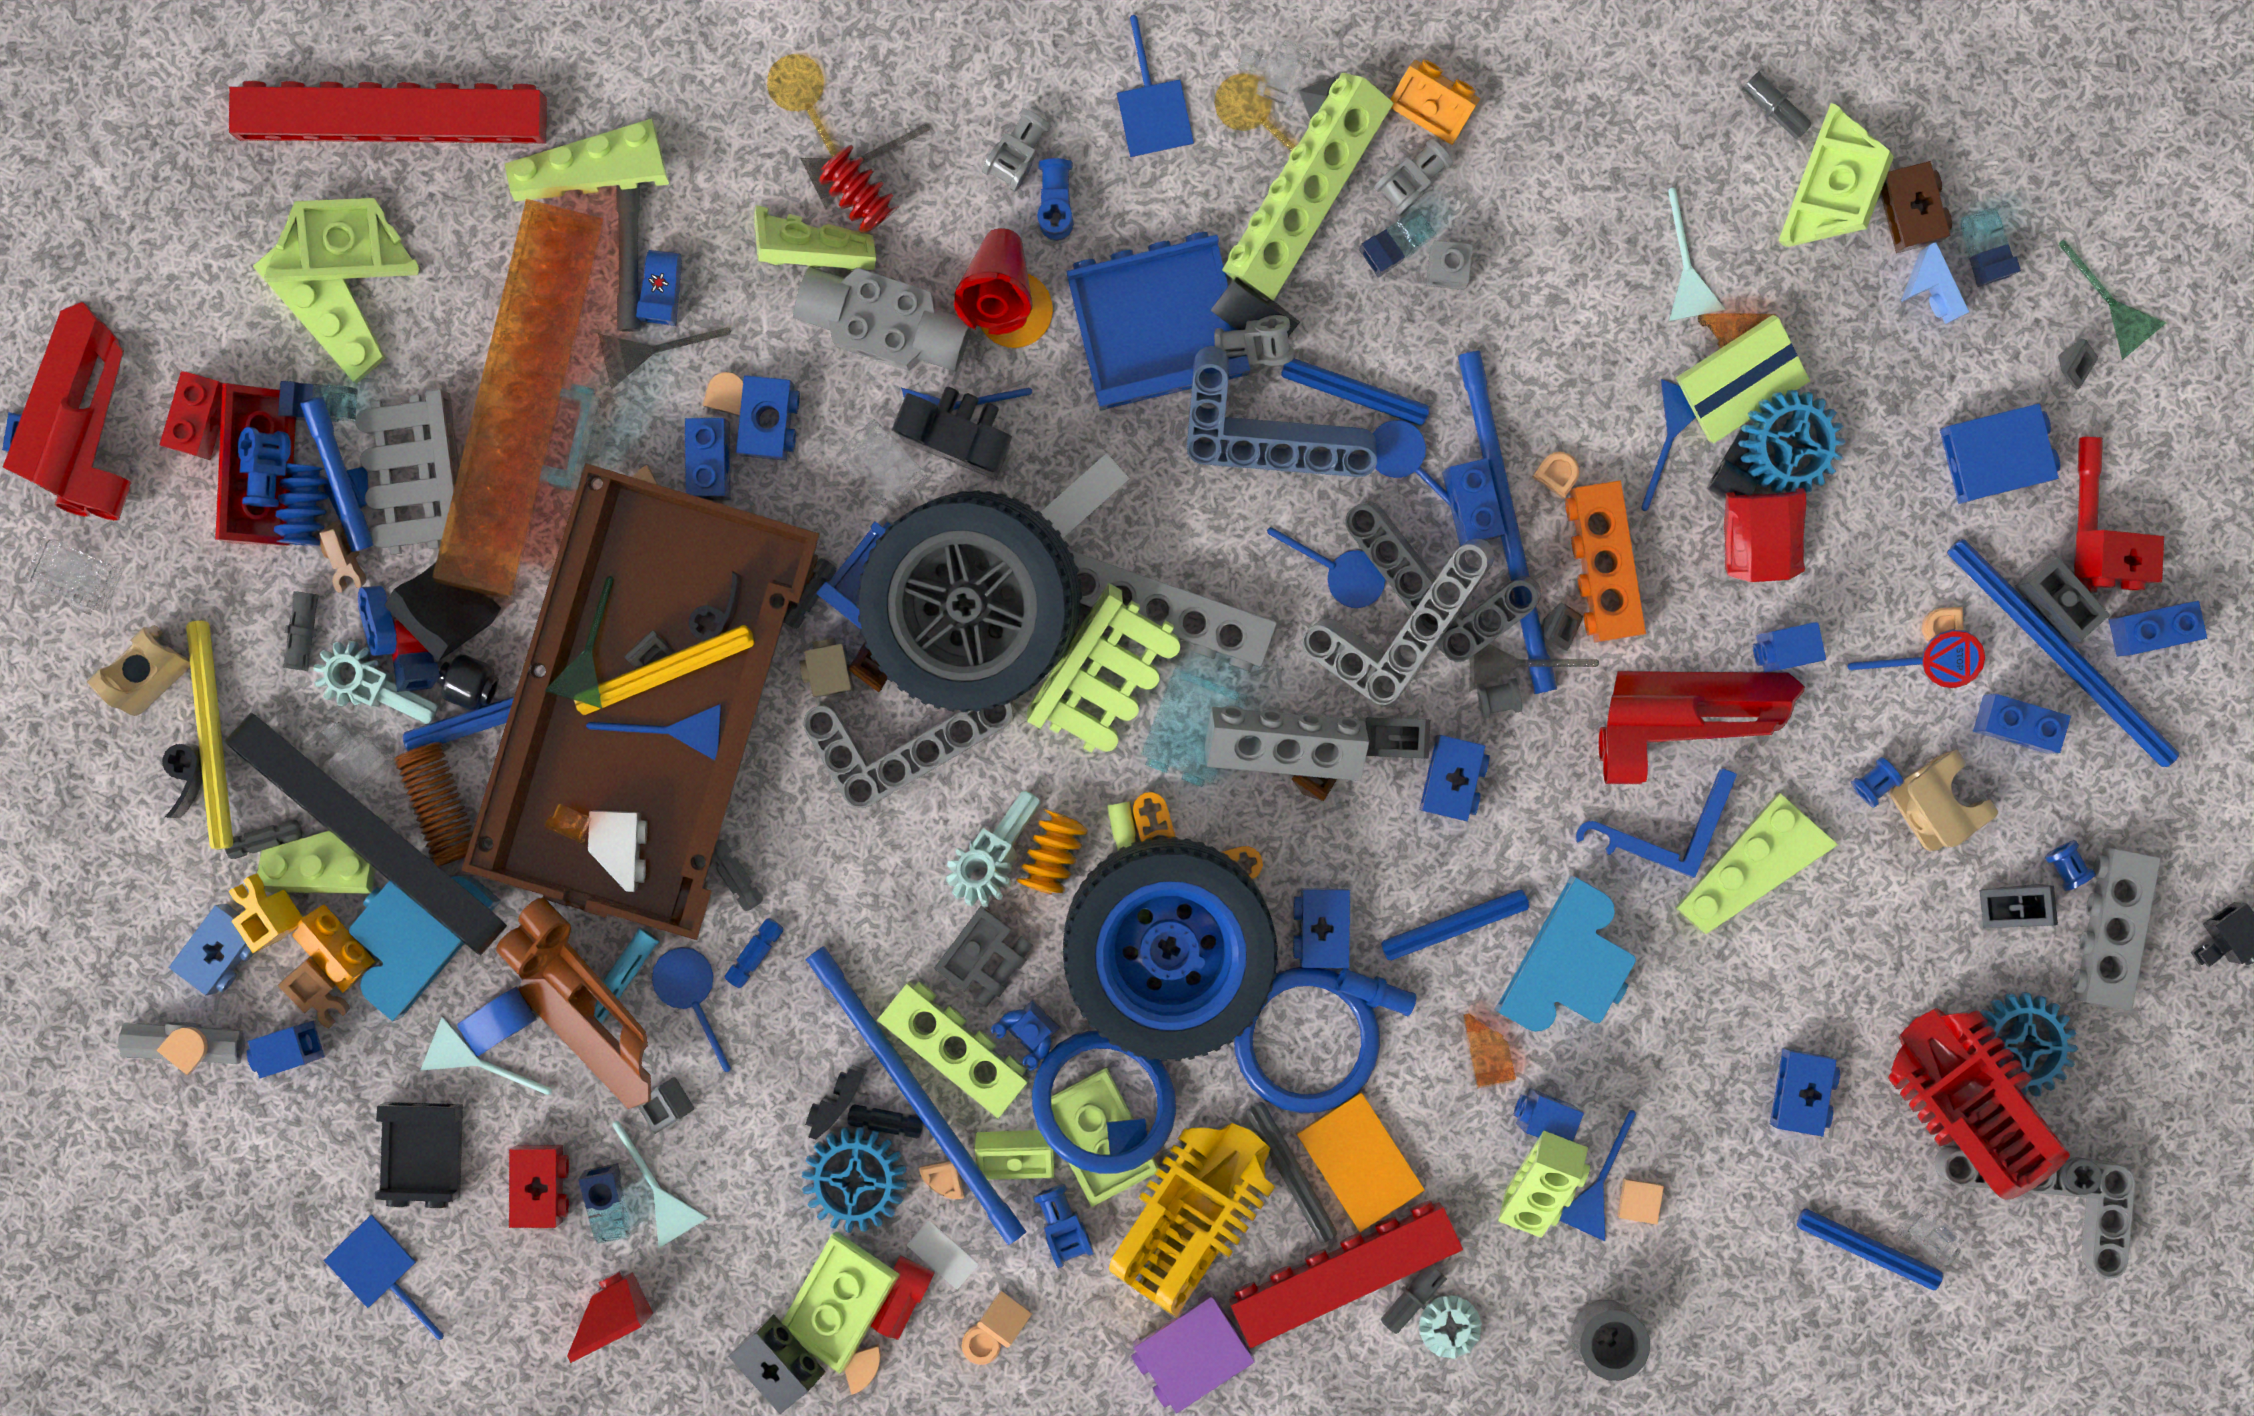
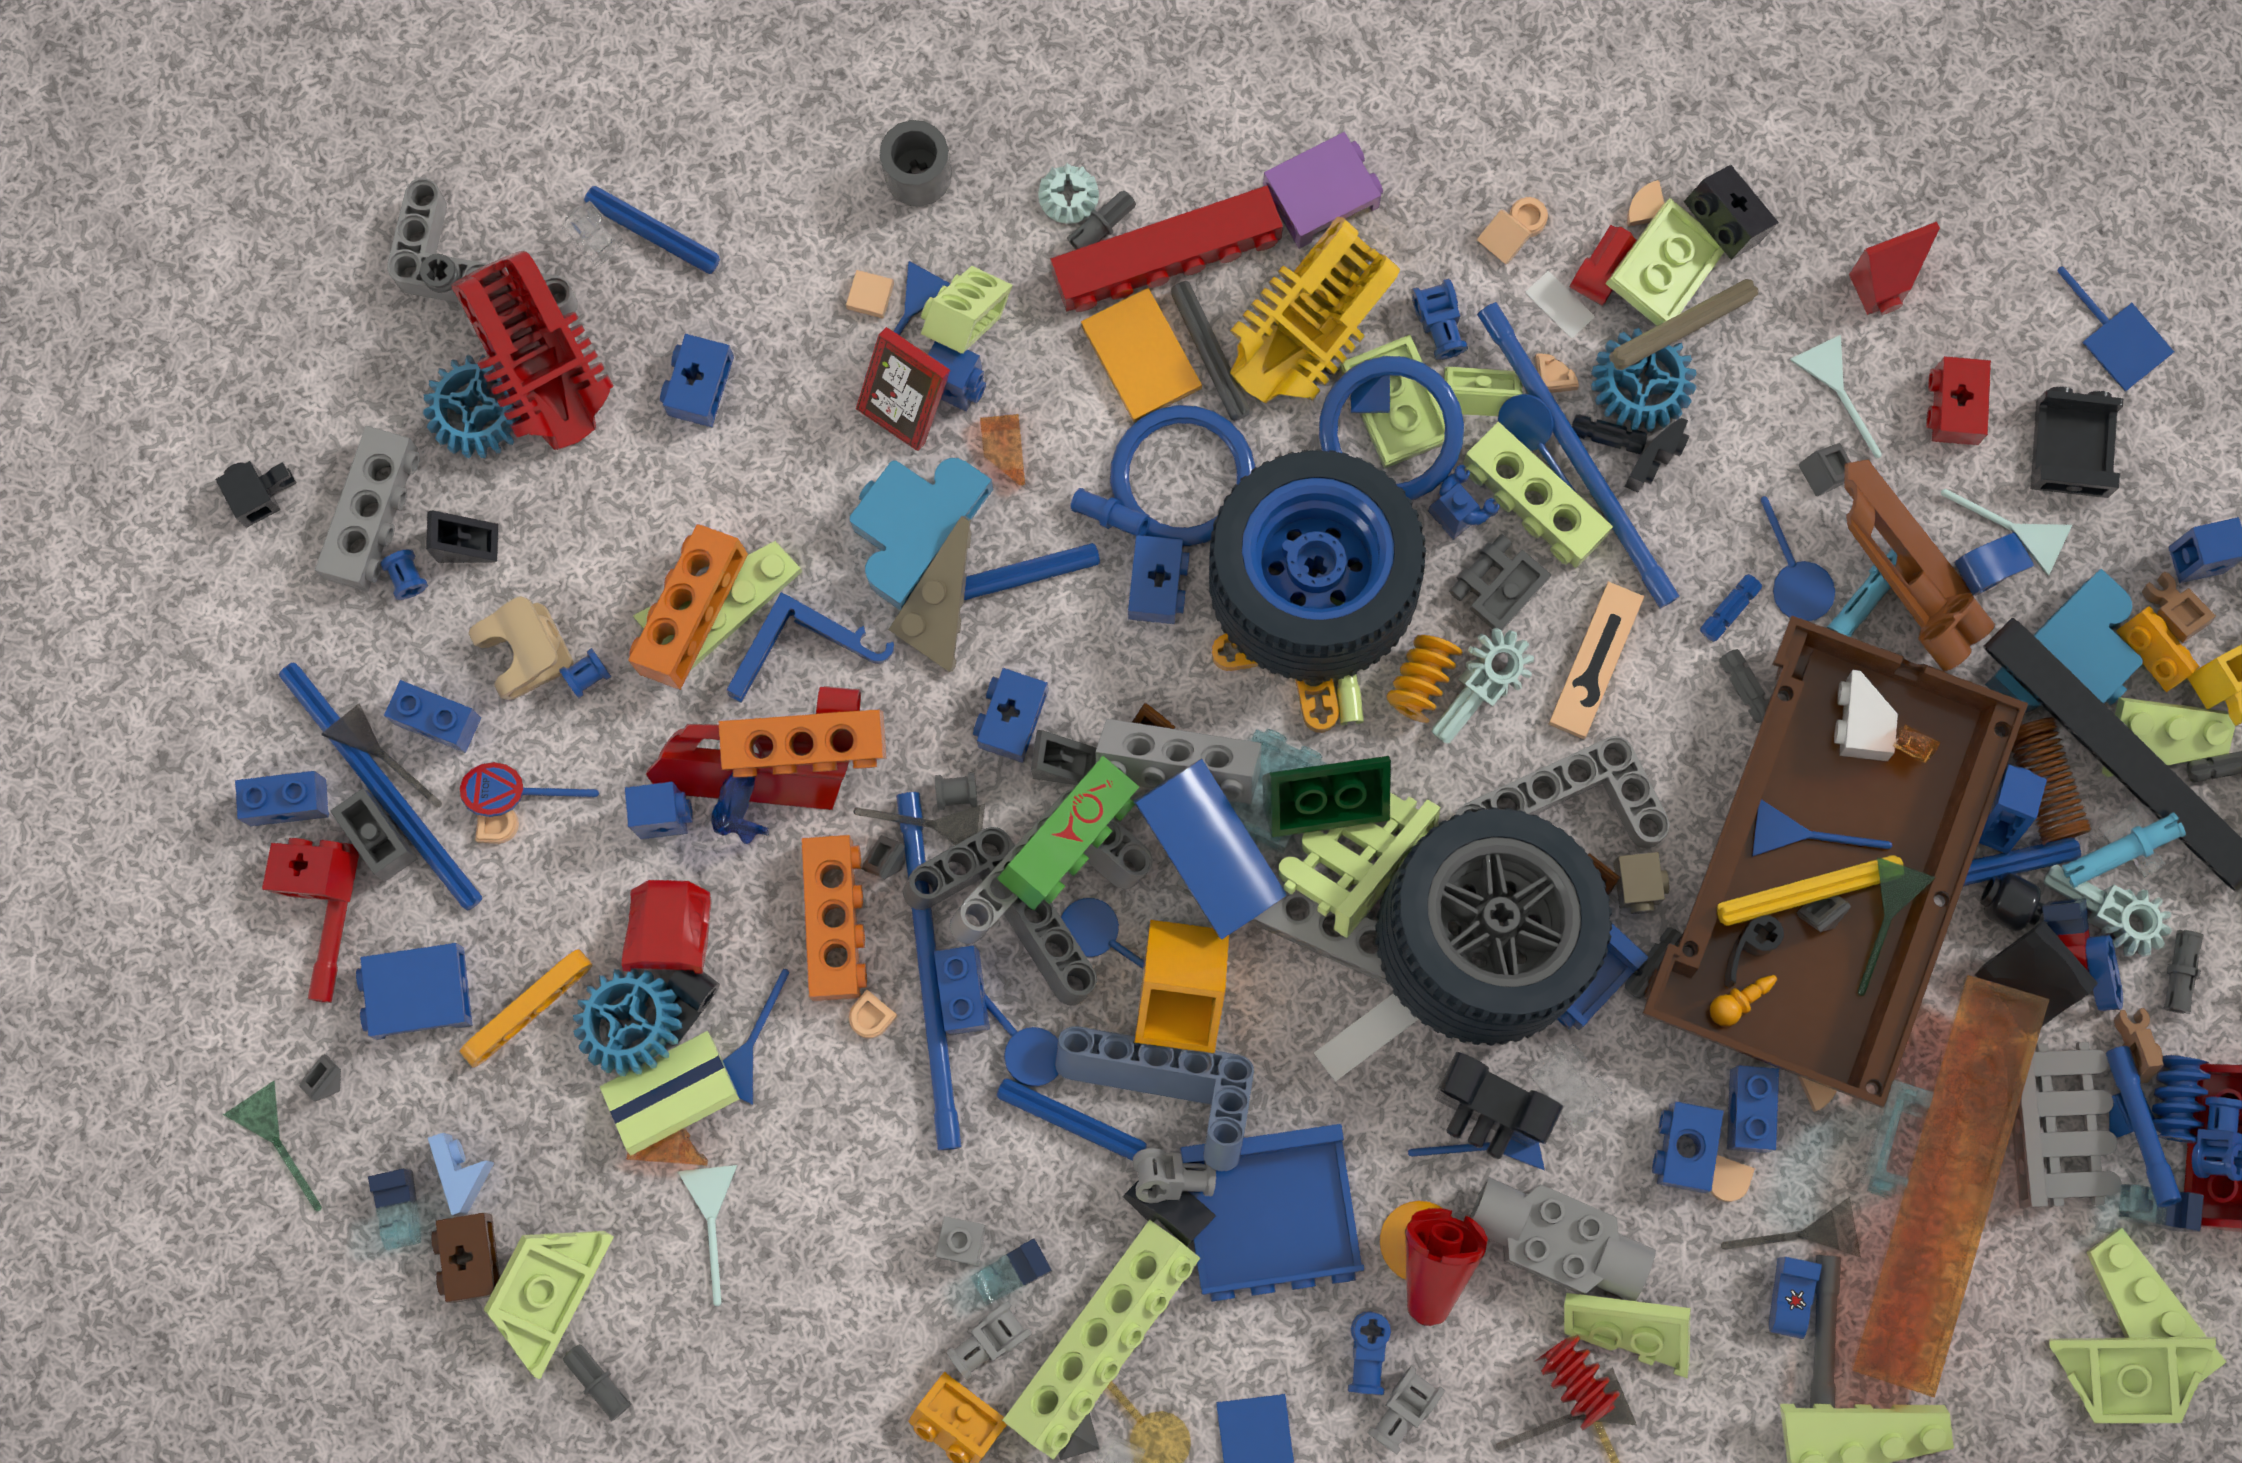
camera: 175 degrees left, 10 degrees down
(362, 737) = (2140, 842): none -> medium azure pin
(470, 770) = (2013, 808): none -> blue brick
(605, 1203) = (1893, 379): leg -> none
(737, 550) = (1728, 1009): none -> light orange bar
(818, 1237) = (1683, 324): none -> dark tan axle
(883, 888) = (1596, 660): none -> light nougat tile
(963, 1118) = (1532, 425): none -> blue piece
(1138, 718) = (1327, 796): none -> dark green slope
(1249, 654) = (1210, 848): none -> blue slope
(1262, 524) = (1182, 987): none -> light orange slope
(1388, 653) = (1068, 833): none -> bright green brick
(1541, 877) = (932, 611): none -> dark tan wing
(1598, 1095) = (902, 388): none -> tile
(1599, 741) = (739, 736): none -> orange brick
(1718, 654) = (731, 808): none -> clear blue piece
(1778, 834) = (691, 626): none -> orange brick
(1891, 448) = (525, 1008): none -> light orange beam
(2094, 702) = (356, 732): none -> clear smoke piece

